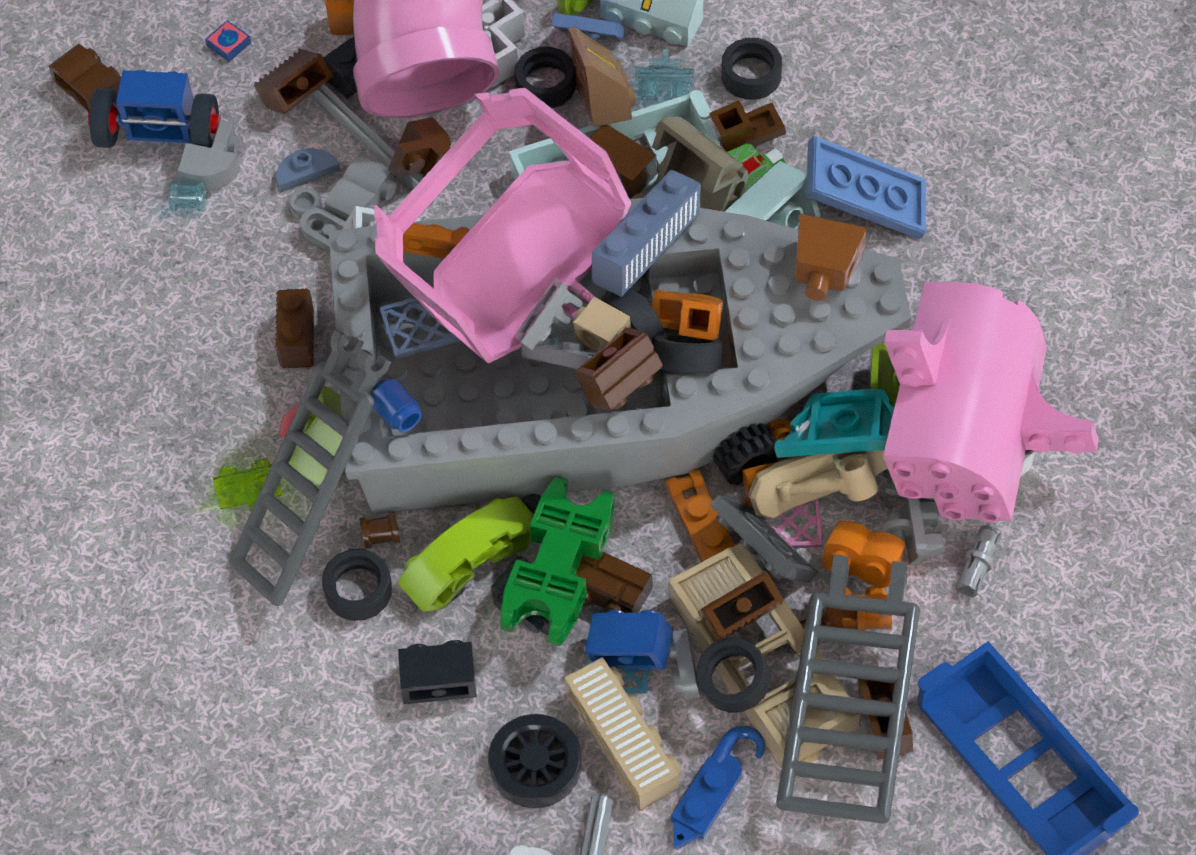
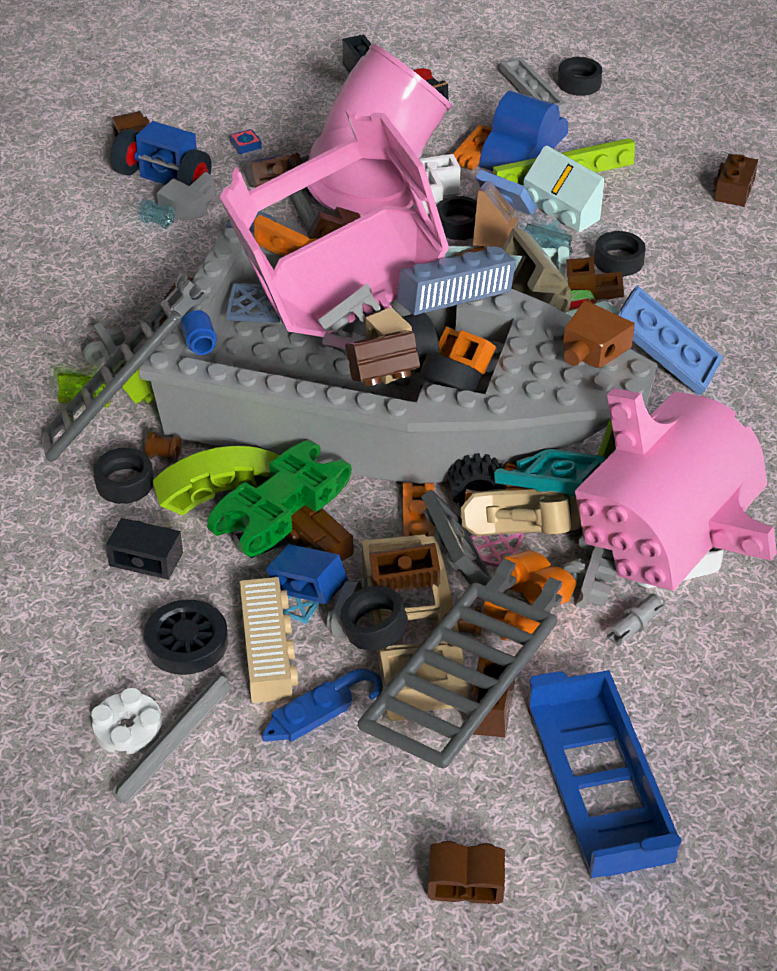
camera: 20 degrees right, 15 degrees down
(238, 422) = (108, 343): none -> light grey hips

